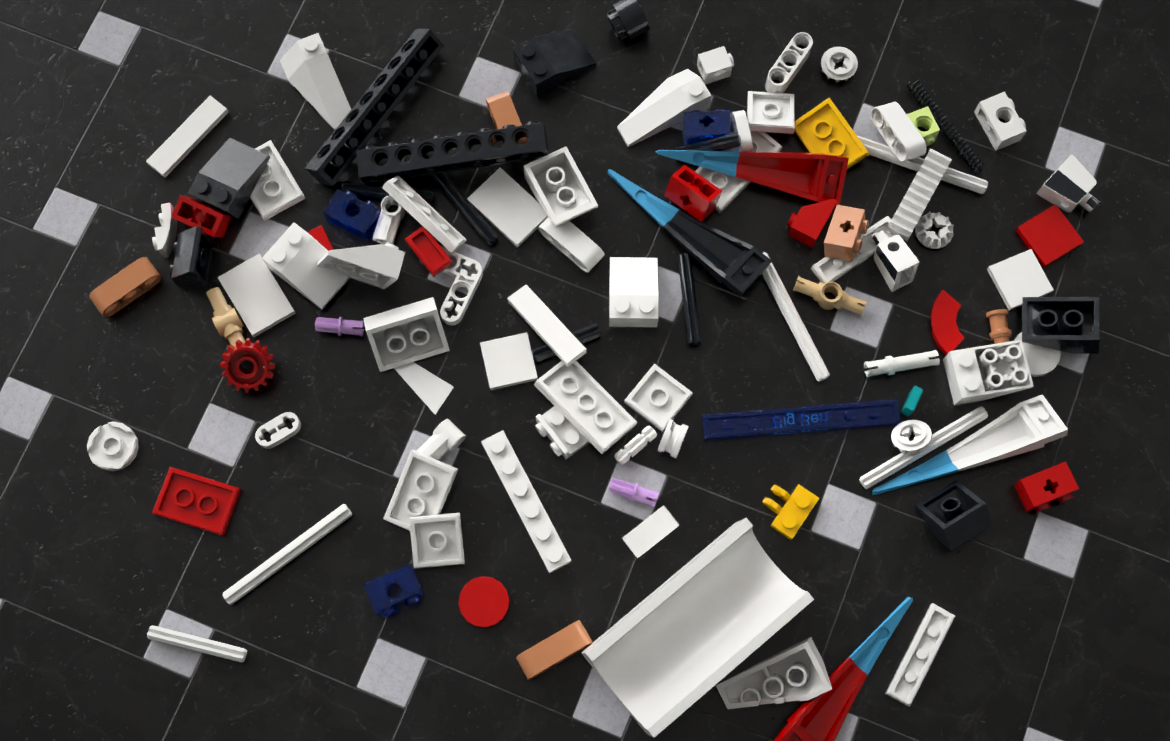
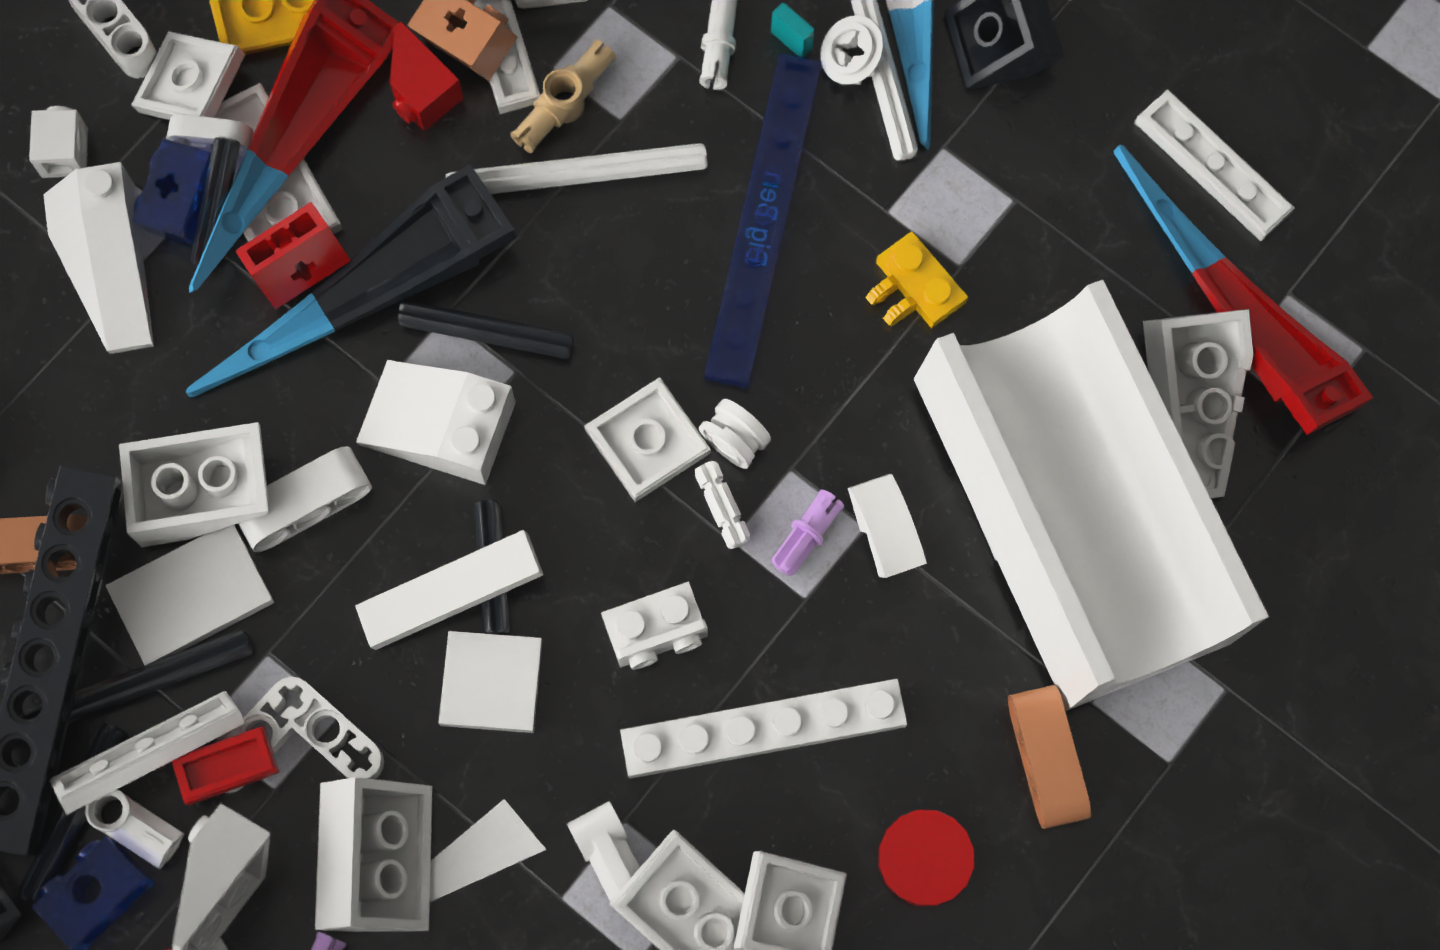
camera: 75 degrees left, 0 degrees up
(586, 405) = (622, 567): white tile -> none

